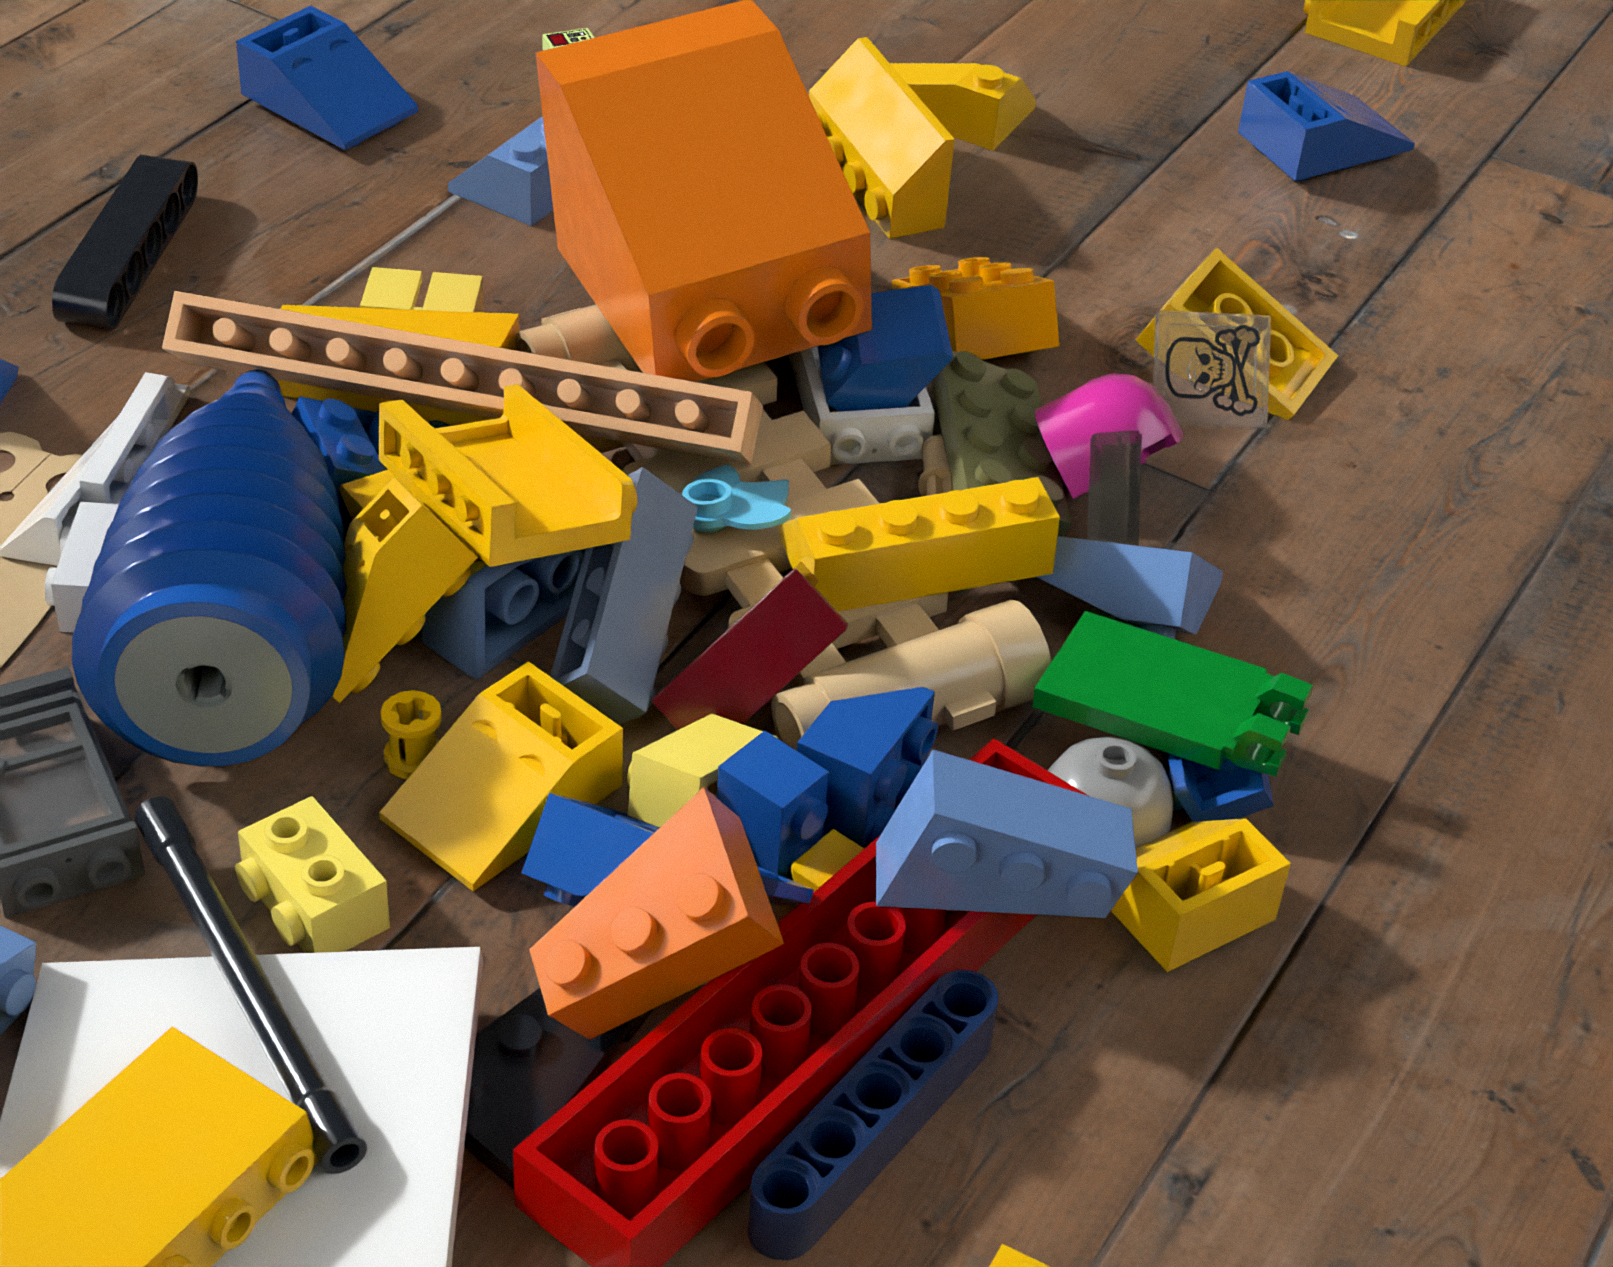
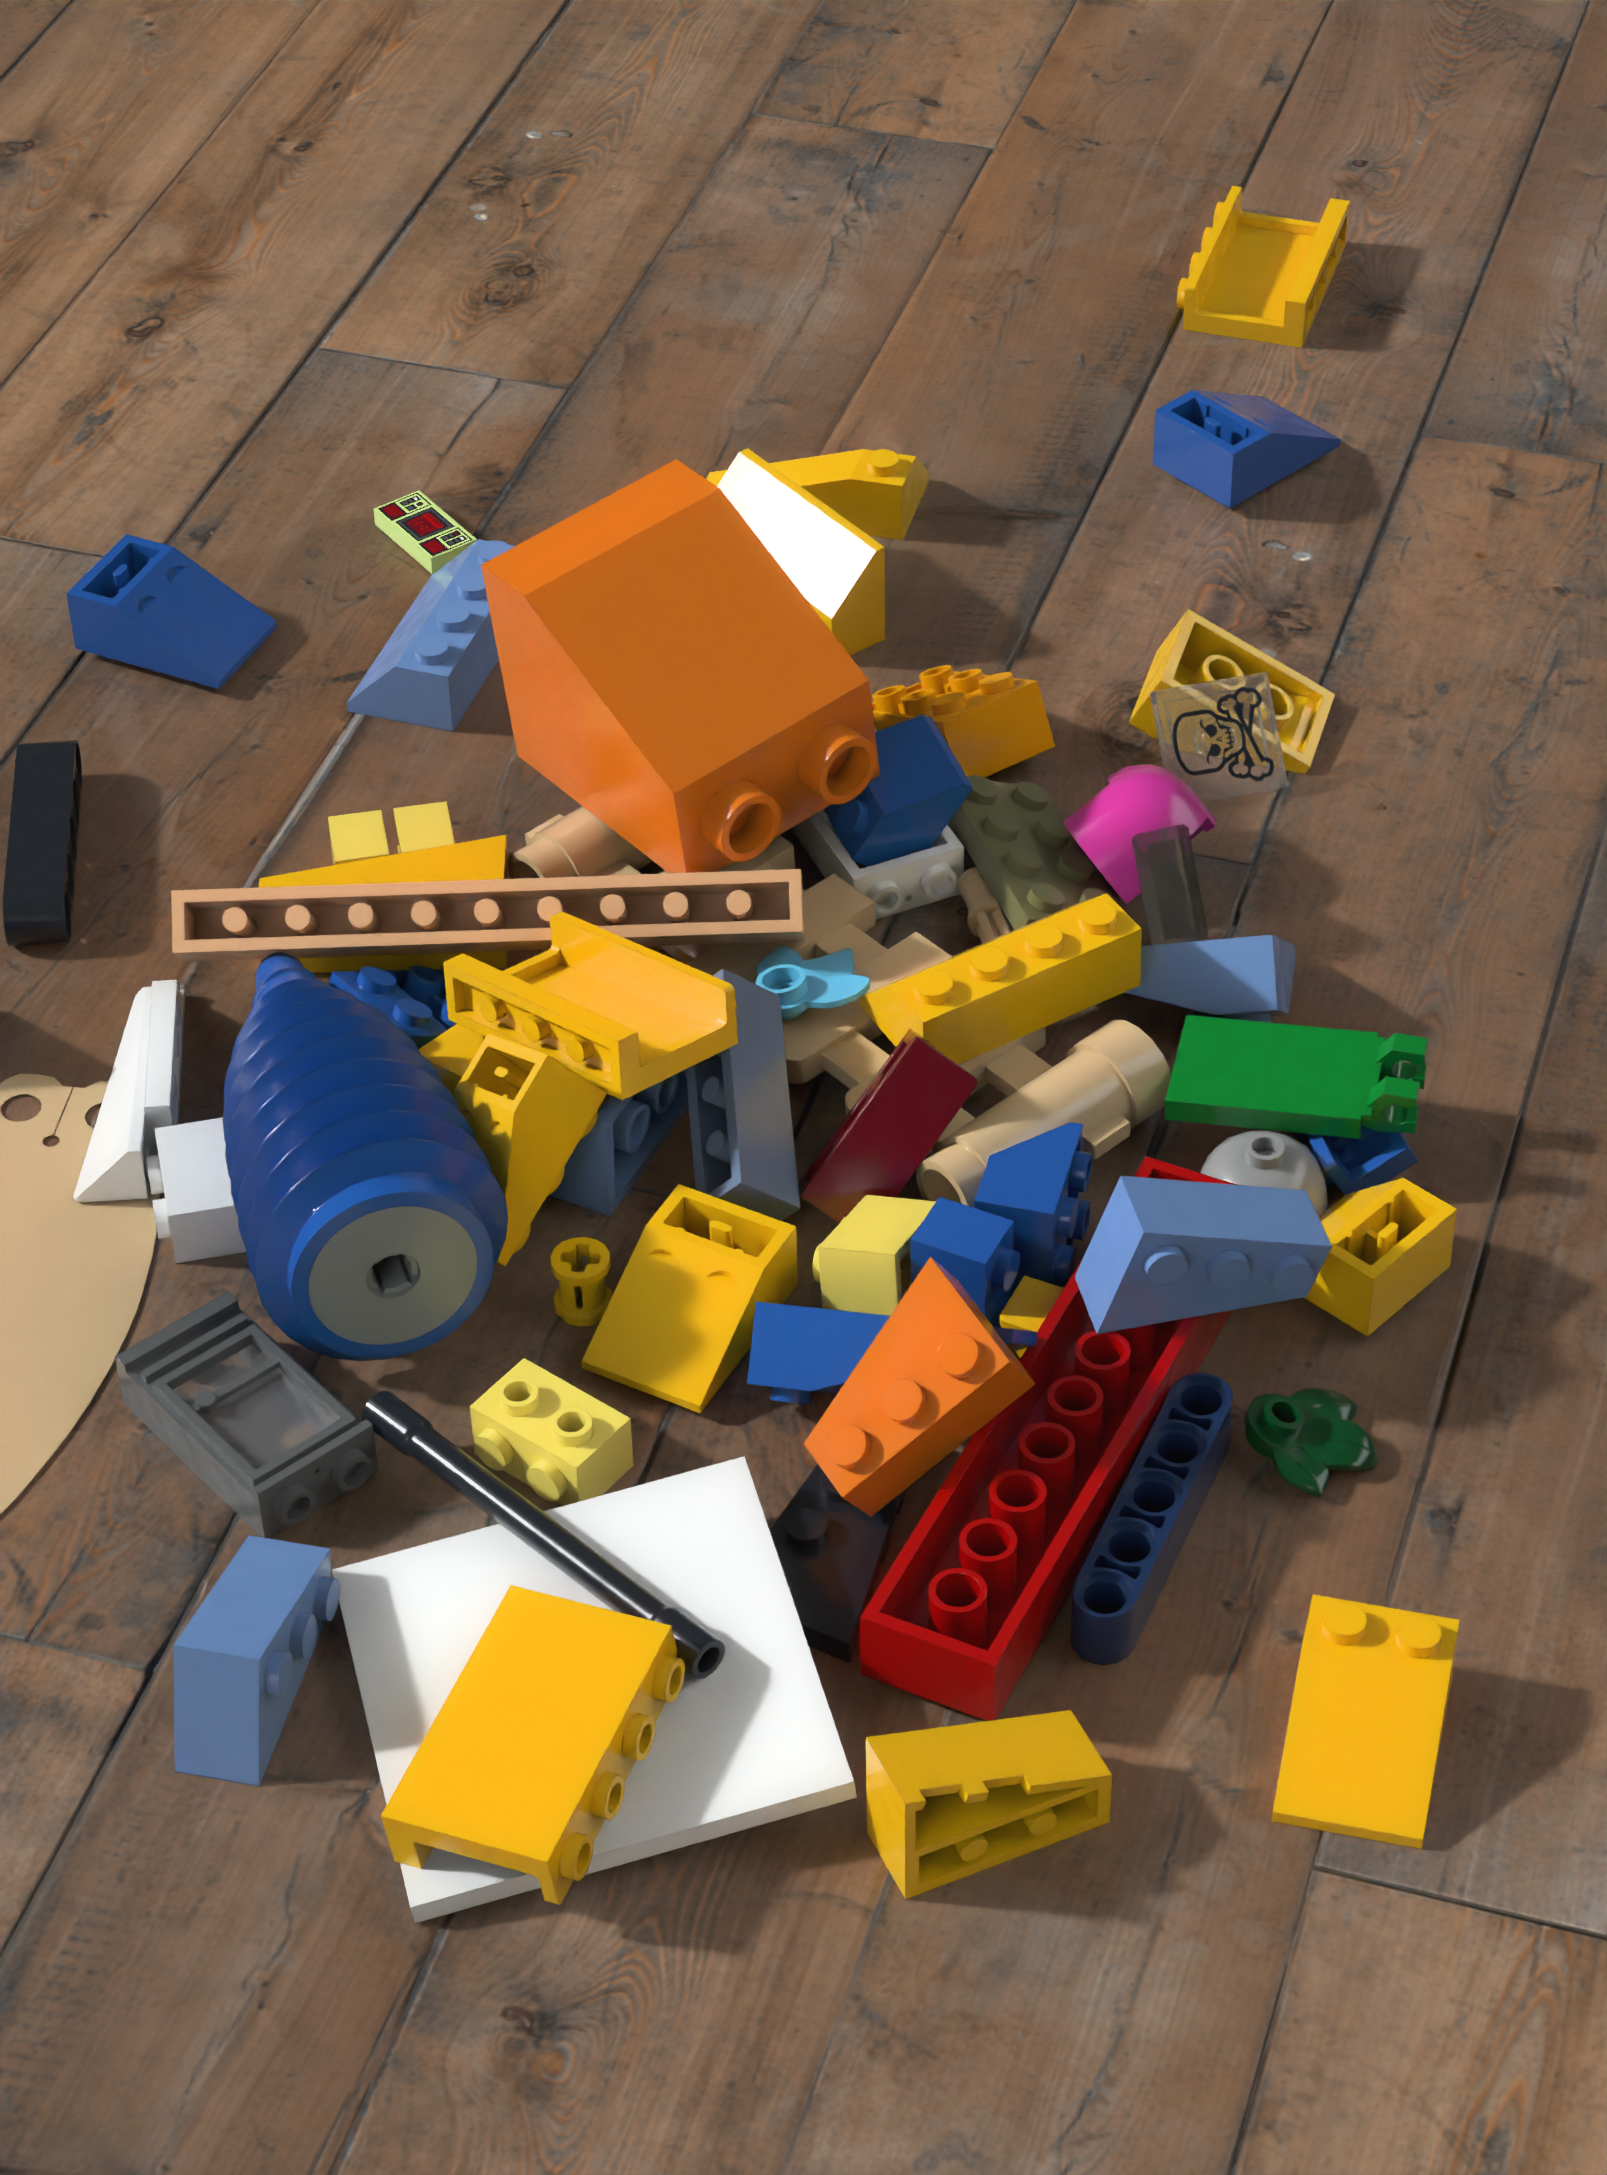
camera: 10 degrees left, 0 degrees up
(1073, 1065) = (1309, 1436): none -> dark green plate

